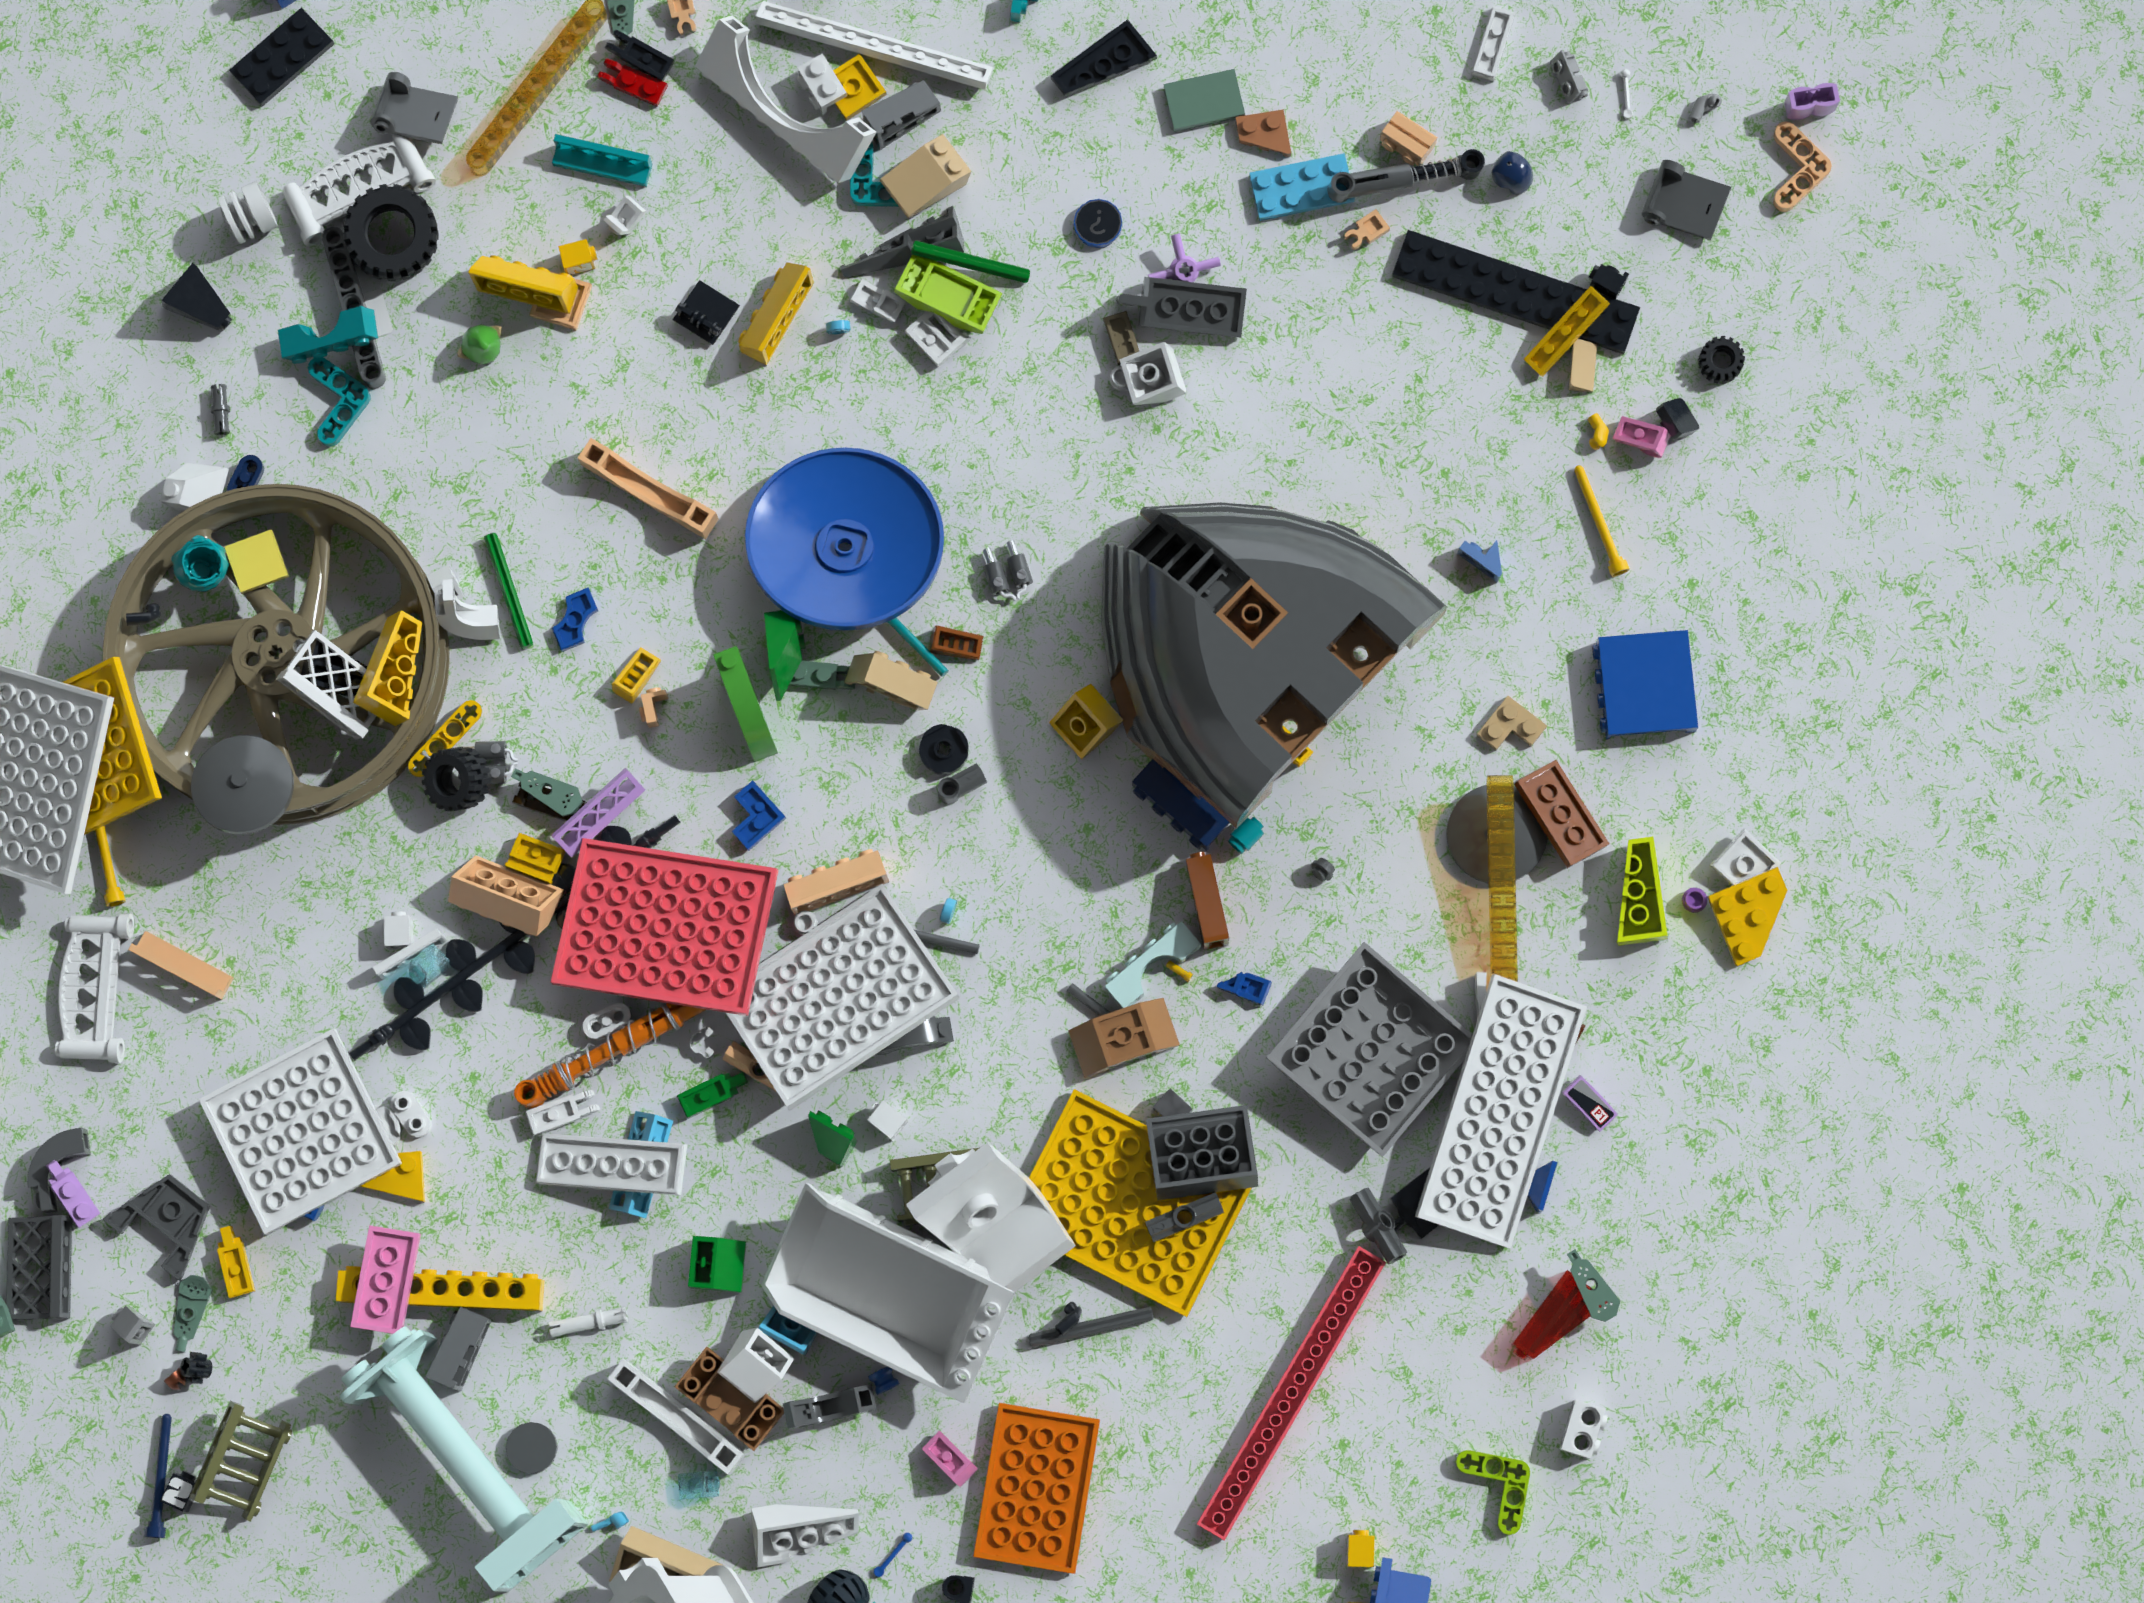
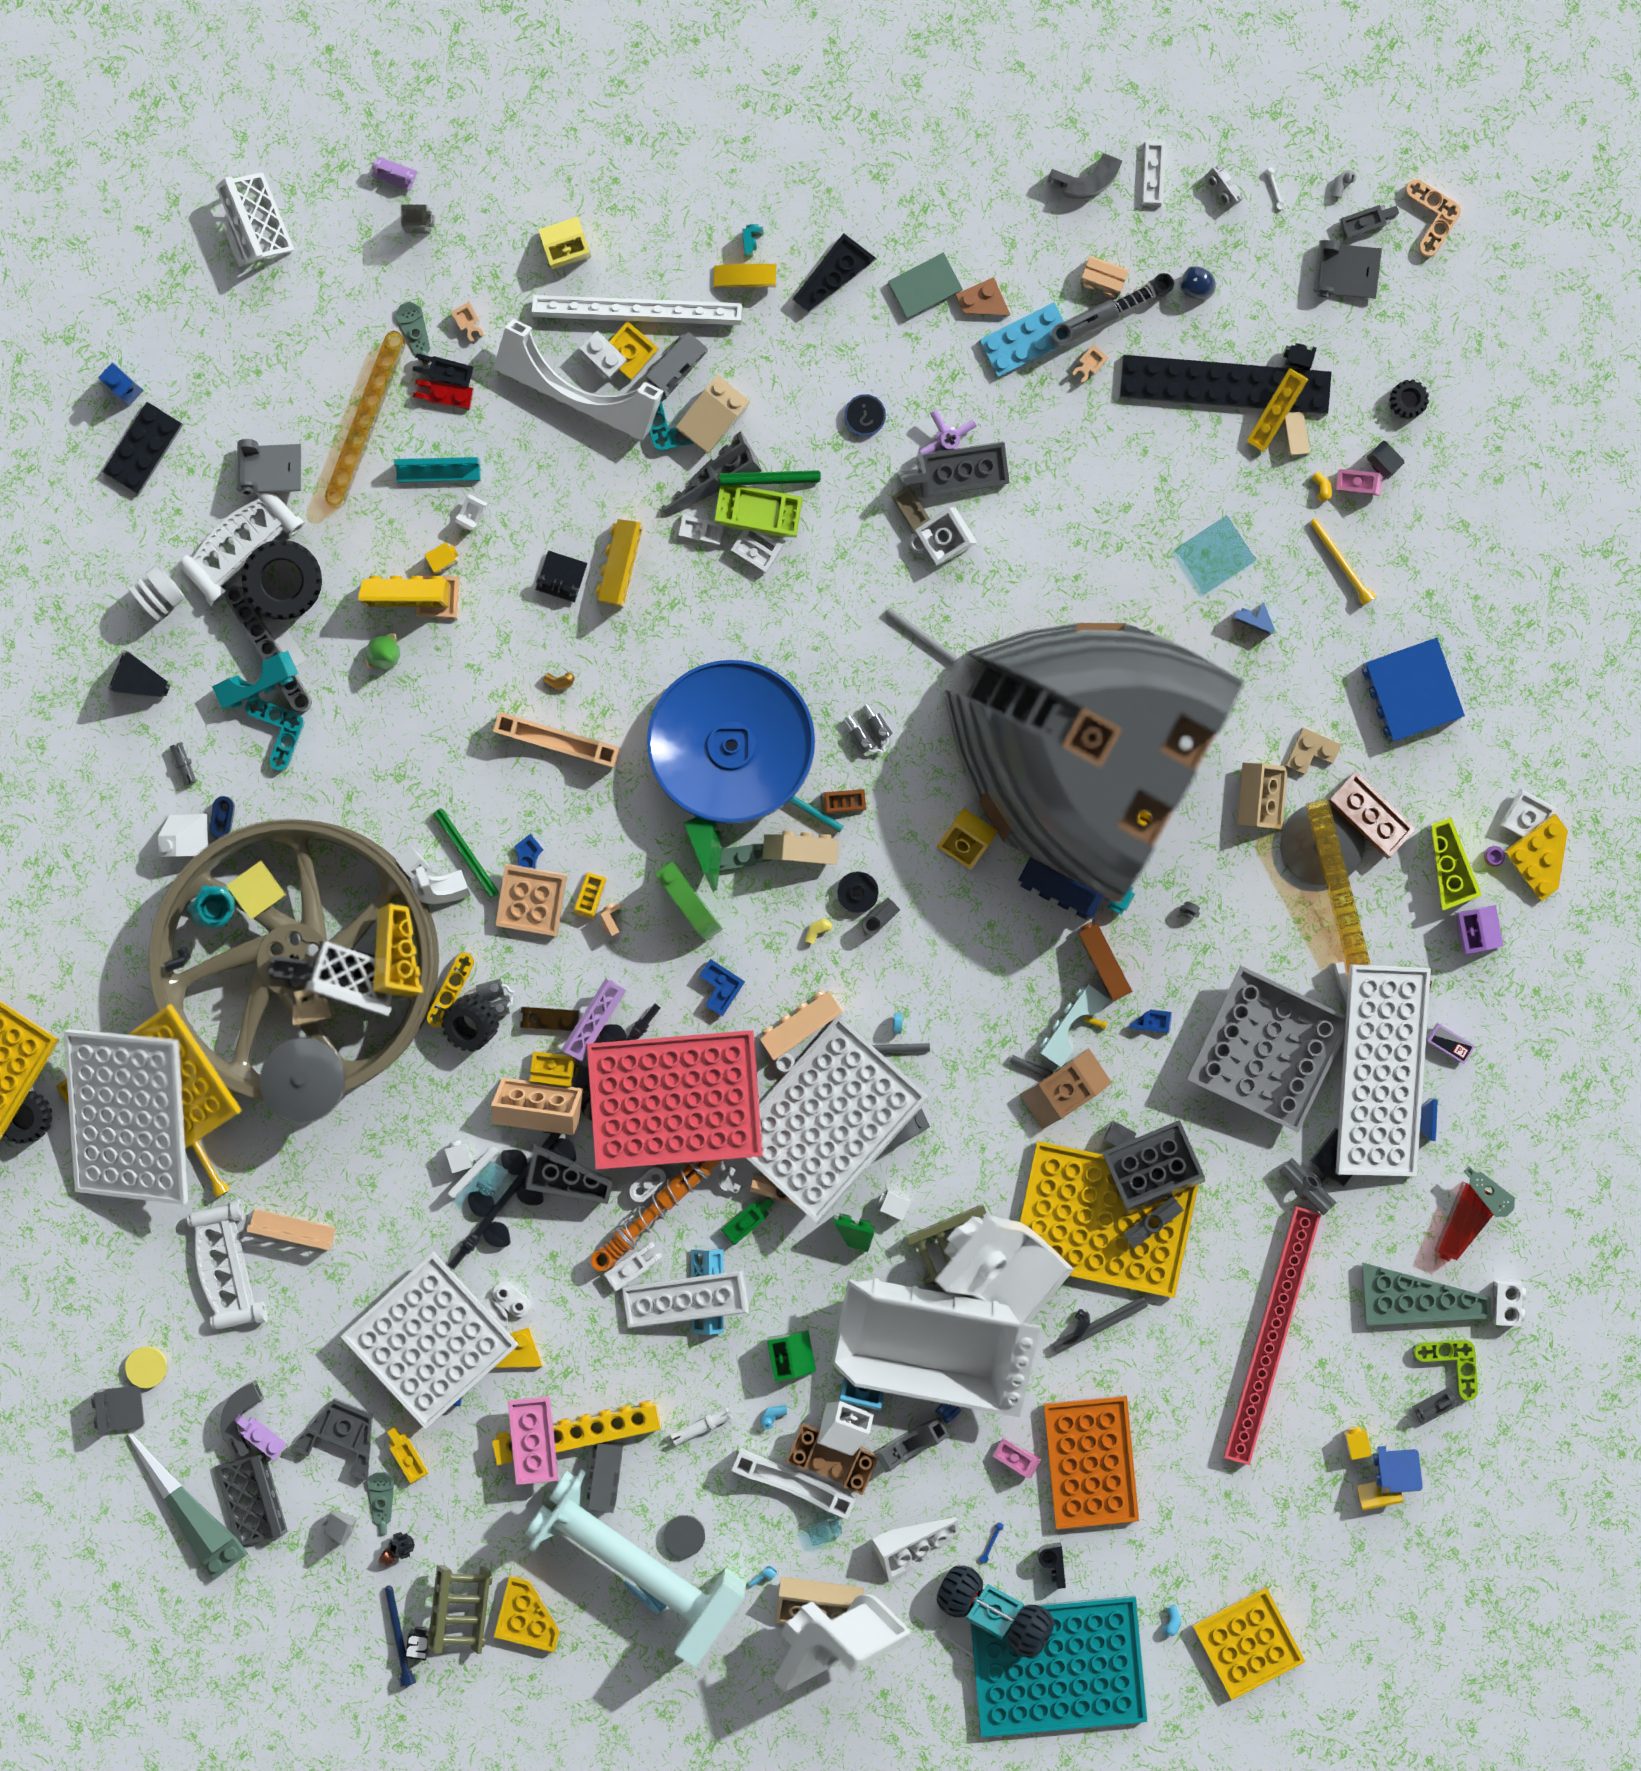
camera: 25 degrees left, 10 degrees up
(265, 656) = (291, 969): none -> dark grey hinge
(277, 712) = (310, 1011): none -> tan piece
(317, 1494) = (525, 1617): none -> yellow plate
(472, 1516) = (651, 1602): none -> medium azure plant
(508, 981) = (560, 1176): none -> dark grey wedge
(558, 792) = (555, 1015): sand green piece -> none
(567, 660) = (531, 900): none -> light nougat plate
(672, 428) = (561, 682): none -> pearl gold arm
(674, 1330) = (770, 1415): none -> medium azure arm
(838, 327) = (674, 561): medium azure tile -> none
(883, 778) = (816, 928): none -> light yellow arm
(1005, 38) = (745, 275): none -> yellow slope
(1095, 480) = (921, 635): none -> light grey bar
(1418, 36) = (1090, 185): none -> flat silver arch
(1440, 759) = (1262, 795): none -> tan slope
(1456, 477) = (1215, 554): none -> clear light blue piece
(1462, 1392) = (1403, 1298): none -> sand green wing
(1465, 1531) = (1435, 1406): none -> dark grey hinge
(1655, 978) = (1478, 929): none -> medium lavender slope
(1722, 153) = (1367, 220): none -> dark grey hinge
(1816, 101) = (1432, 157): lavender brick -> none

